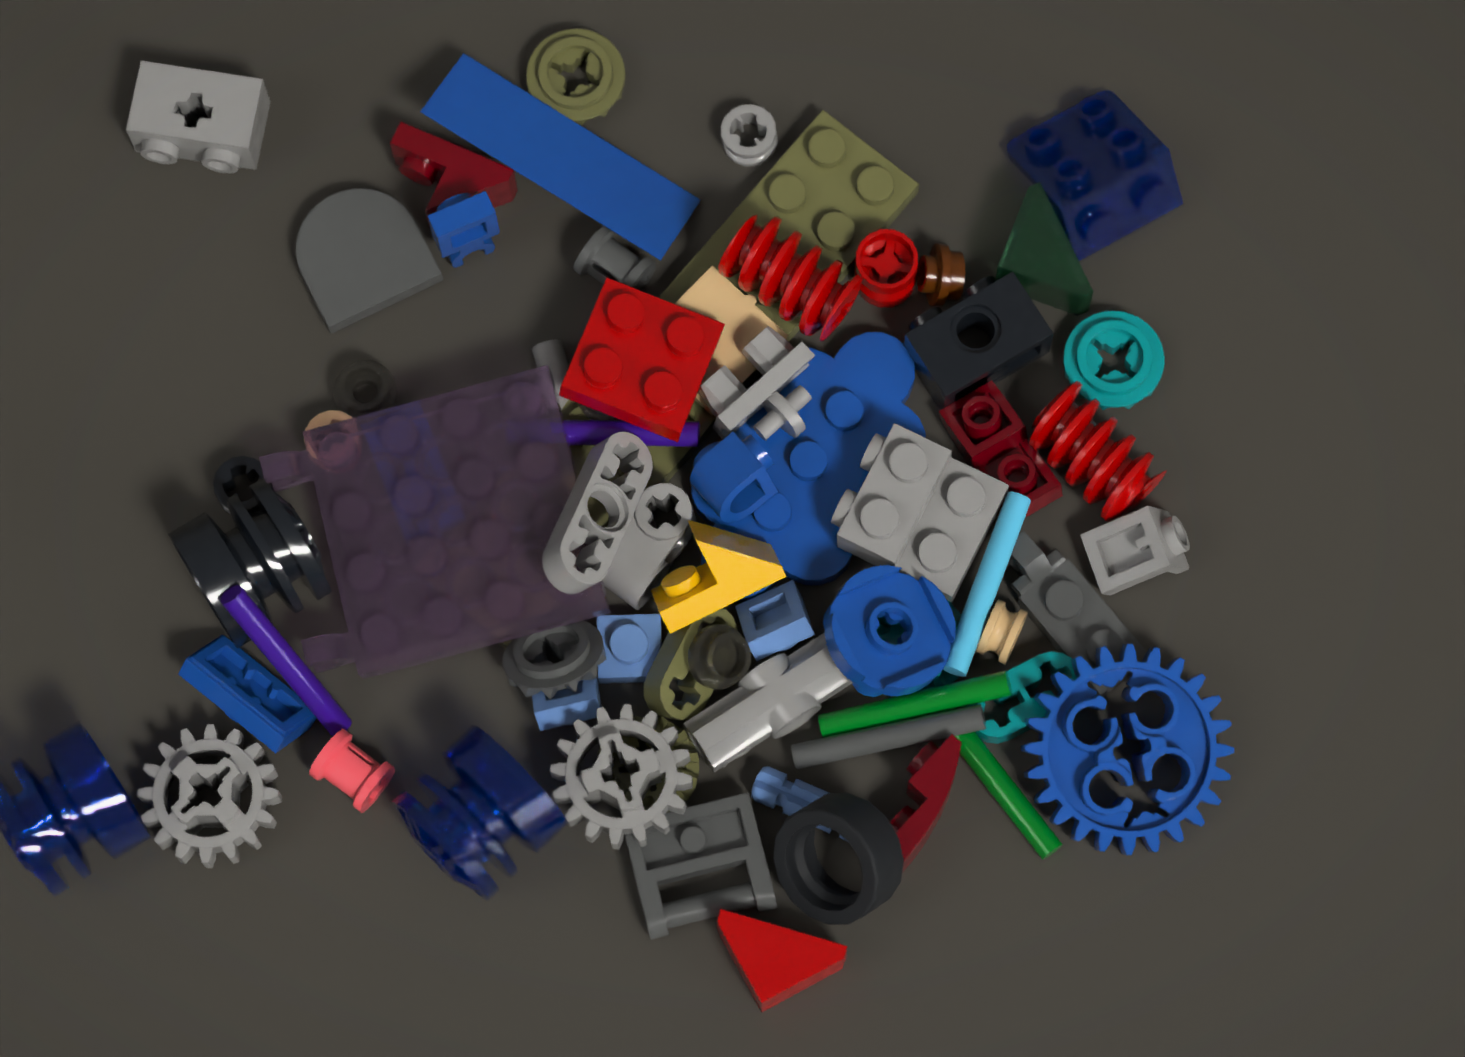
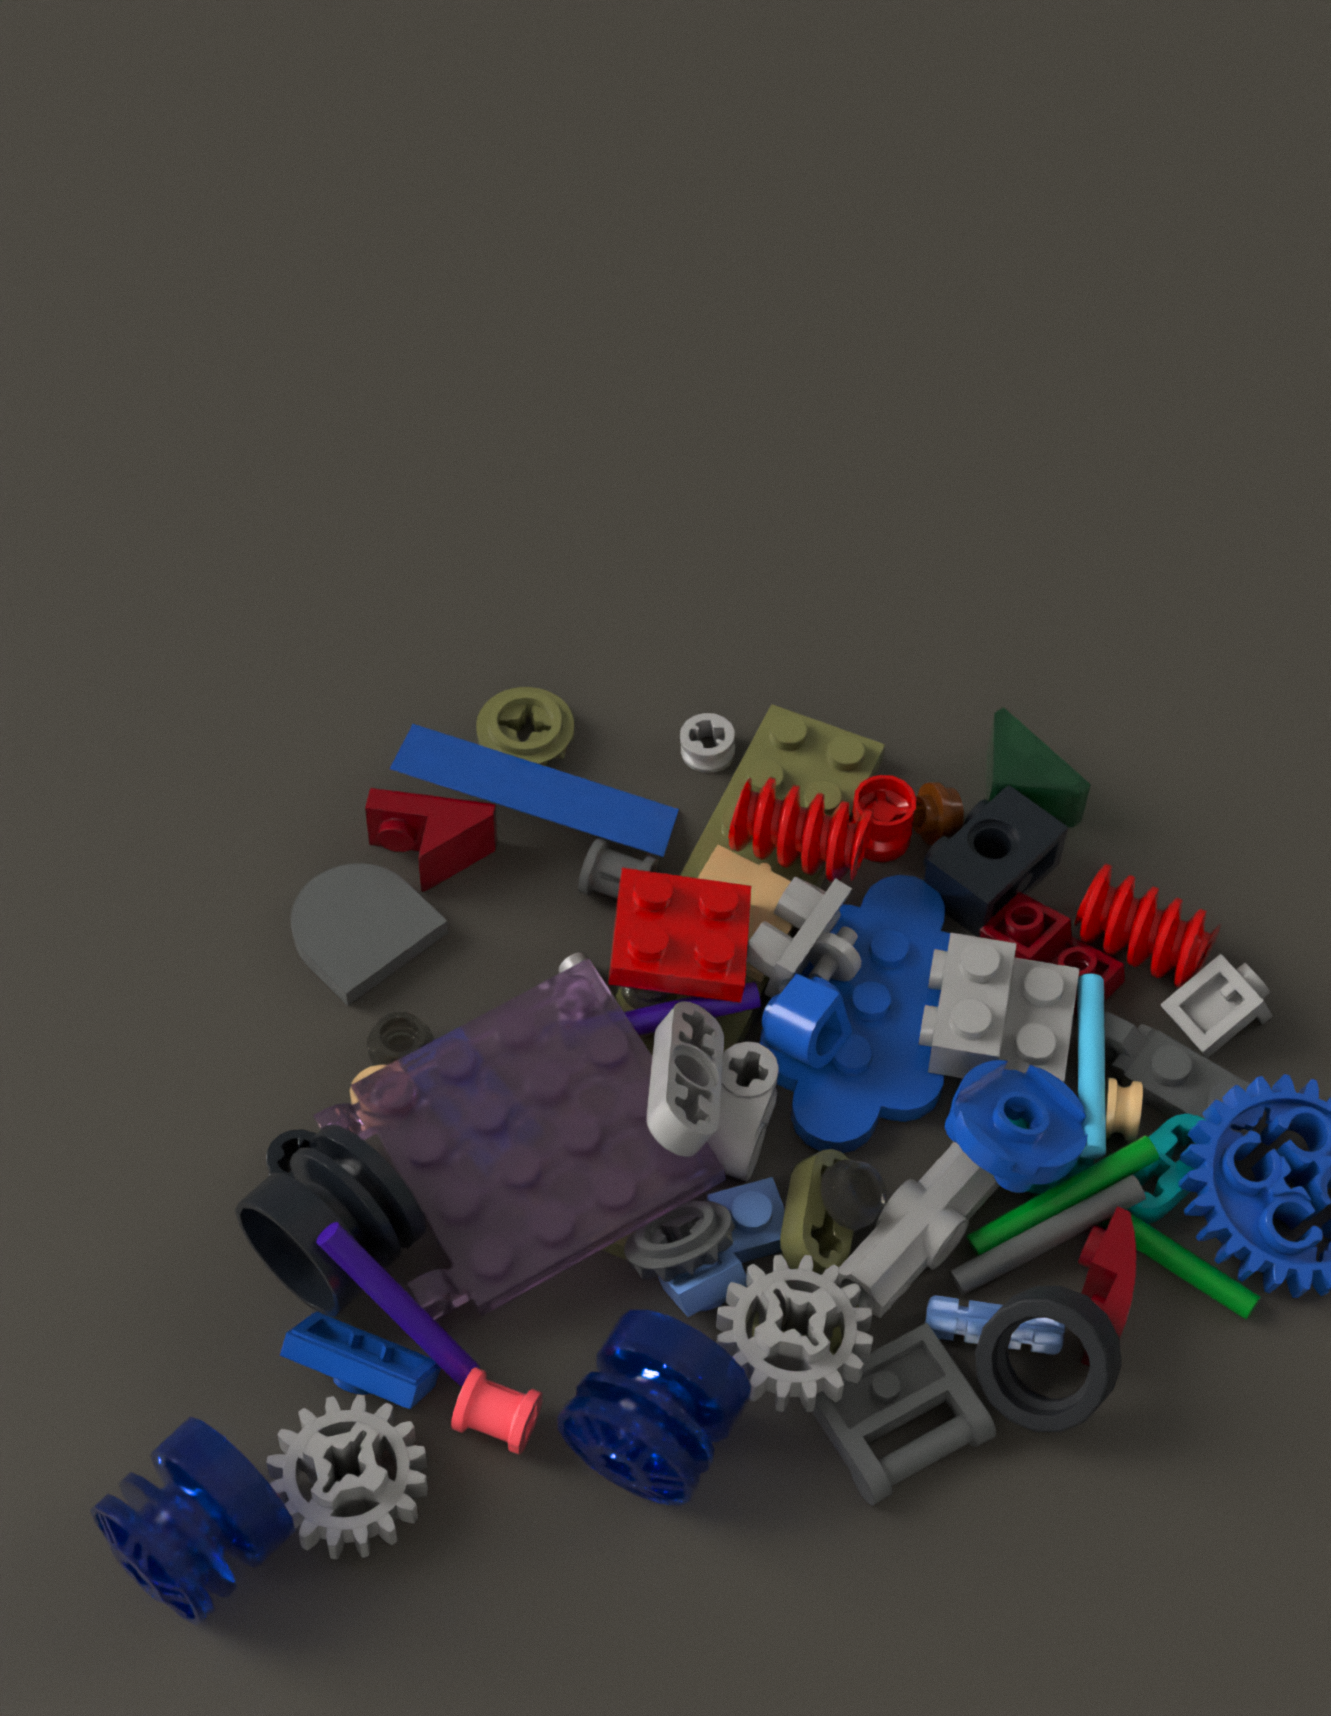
camera: 20 degrees left, 20 degrees down
(175, 96) = (160, 835): light grey brick -> none
(464, 226) = (460, 861): blue plate -> none
(731, 572) = (833, 1111): yellow slope -> none
(775, 620) = (896, 1150): medium blue plate -> none
(777, 959) = (1014, 1483): red slope -> none
(1098, 171) = (1055, 689): clear blue bracket -> none
(1110, 333) = (1112, 830): teal gear -> none

